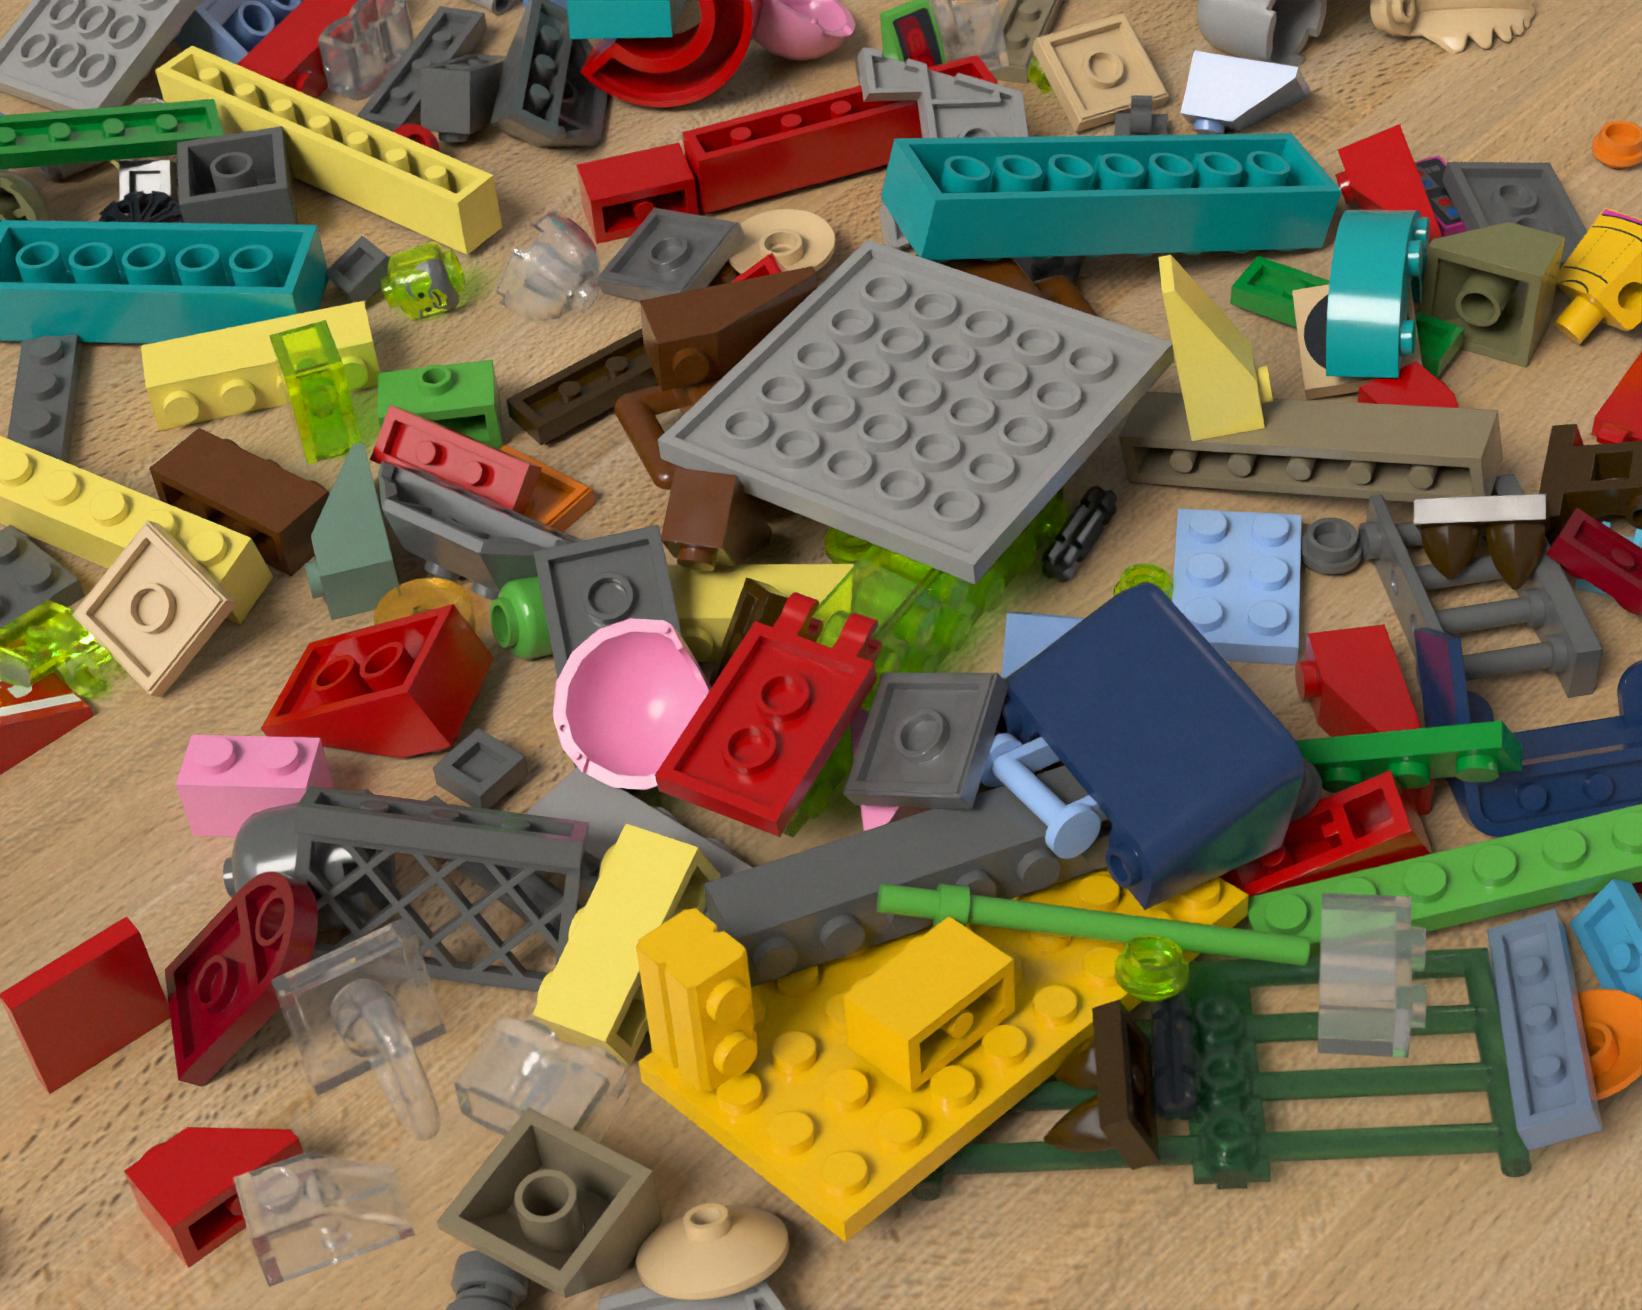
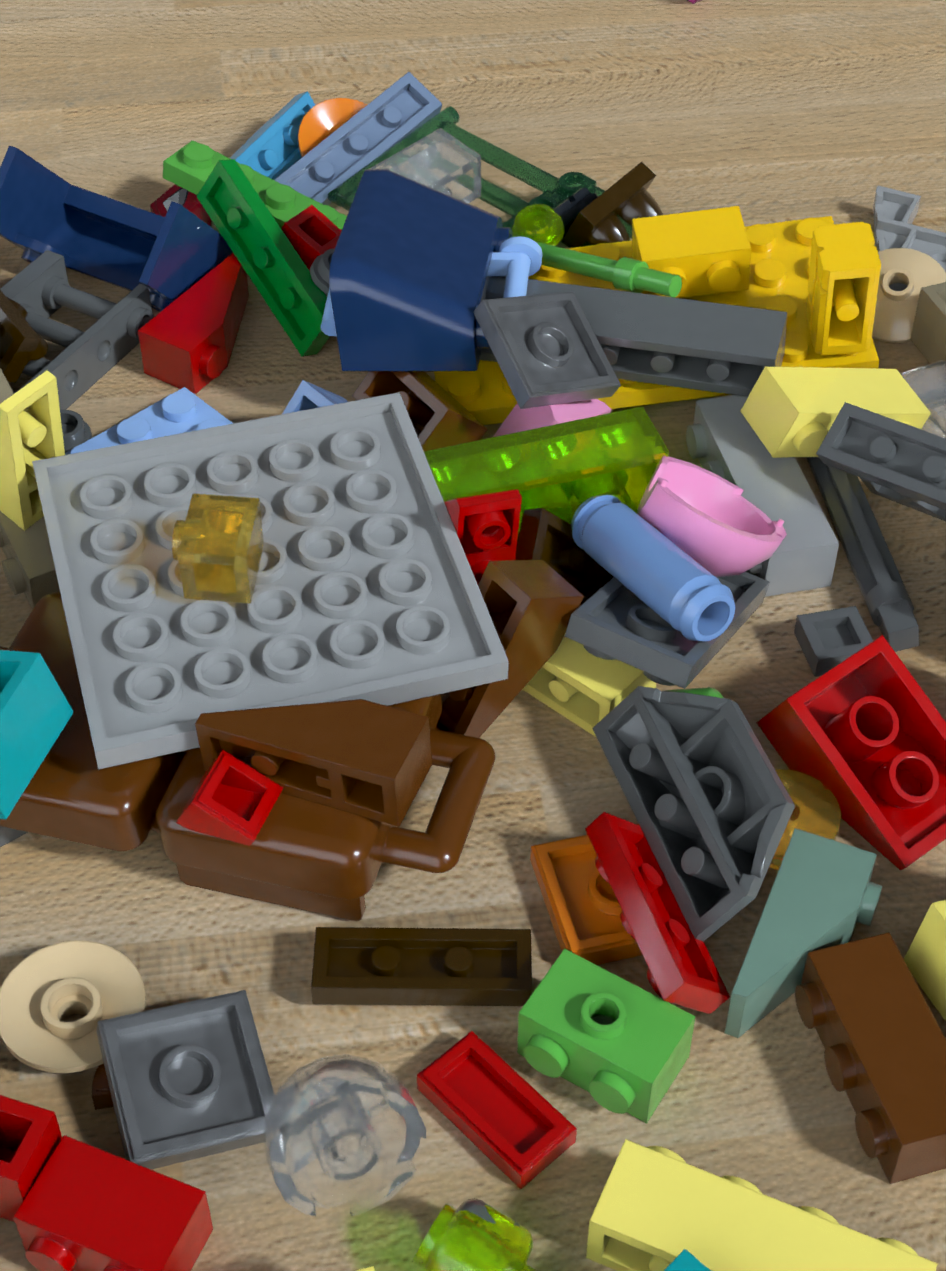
camera: 145 degrees left, 0 degrees up
(316, 391) = (739, 1097): clear neon green brick -> none
(514, 359) = (496, 1109): none -> red tile
(597, 598) = (653, 568): none -> medium blue axle
(773, 718) = (628, 413): red tile -> none
(801, 540) = (487, 527): none -> red slope
(927, 342) = (219, 548): none -> clear yellow brick

